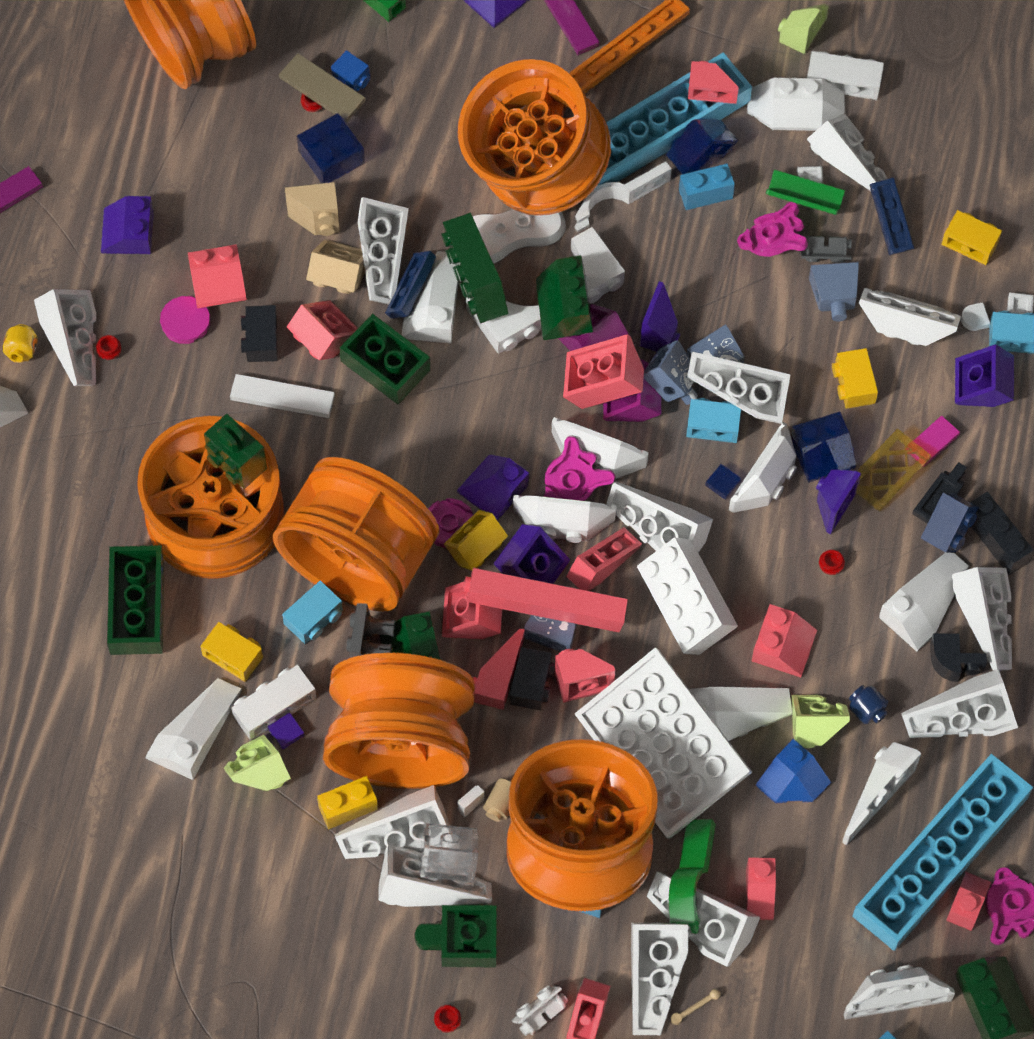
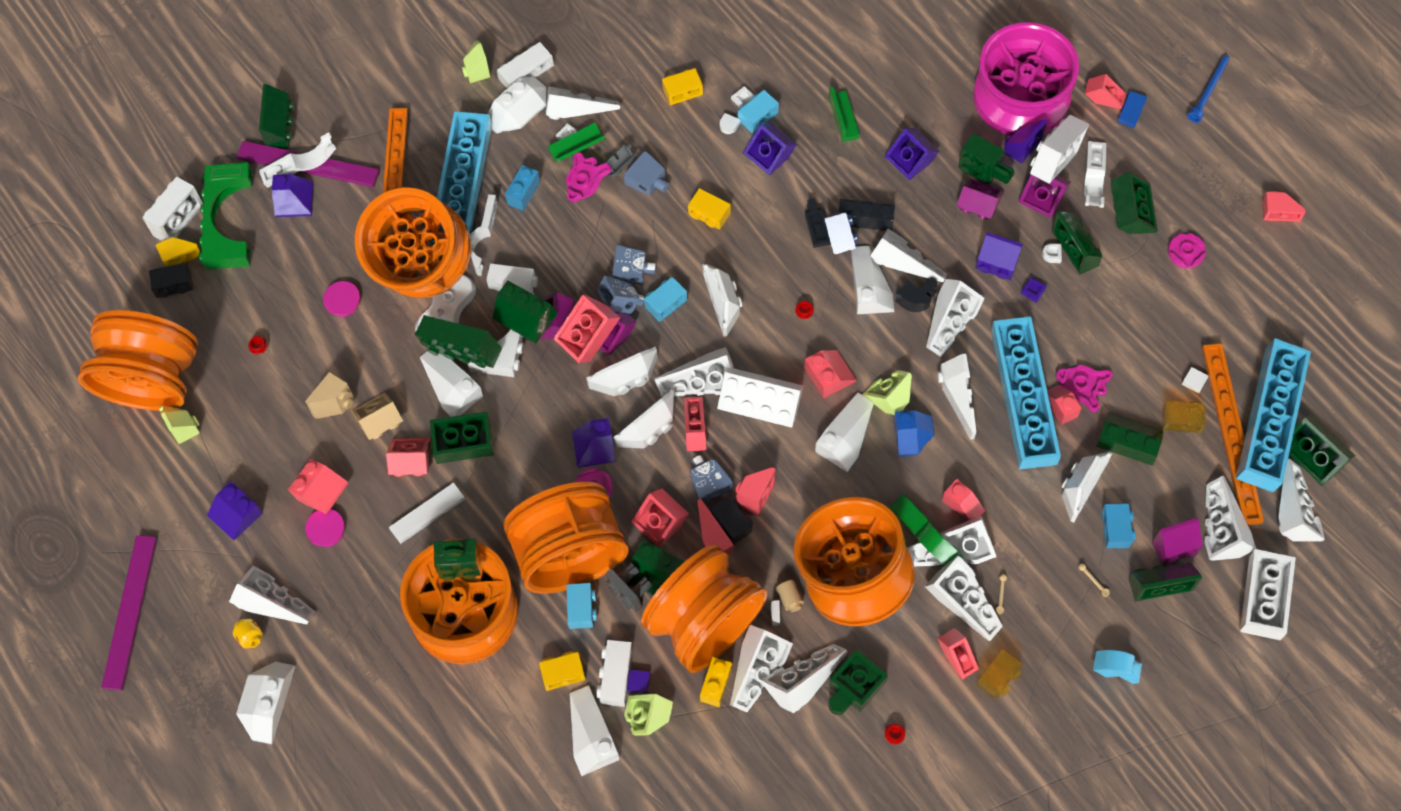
camera: 45 degrees left, 0 degrees up
(108, 347) = (300, 585): red plate -> none
(135, 600) = (479, 699): dark green brick -> none
(168, 102) = (179, 423): none -> yellowish green slope
(261, 333) = (377, 492): black brick -> none
(322, 87) = (257, 332): dark tan piece -> none
(330, 149) = (300, 360): clear blue brick -> none
(351, 71) = (263, 312): blue brick -> none
(382, 240) = (387, 377): white wedge -> none
(410, 285) = (428, 387): dark blue plate -> none
(431, 130) = (341, 298): none -> dark pink tile
(449, 853) = (800, 649): clear brick -> none
(476, 540) = (620, 480): yellow brick -> none
(532, 556) = (659, 461): dark purple slope -> none
(545, 600) = (696, 471): coral brick -> none
(547, 1002) = (933, 669): white hinge -> none
(573, 473) = (631, 397): dark pink tile -> none
(660, 322) = (581, 276): dark purple slope -> none
(671, 734) = (826, 471): white plate -> none
(699, 143) = (495, 167): clear blue brick -> none
(711, 83) = (469, 131): coral slope -> none
(723, 481) = (705, 325): clear blue tile -> none
(748, 387) = (667, 263): white wedge -> none
(823, 446) = (735, 257): clear blue slope -> none
(835, 495) = (770, 275): dark purple slope -> none
(868, 704) = (906, 359): dark blue head -> none
(883, 450) = (776, 215): clear yellow window -> none
(891, 216) = (632, 113): dark blue tile -> none
(907, 317) = (701, 154): white wedge -> none
(936, 438) = (780, 203): dark pink tile -> none

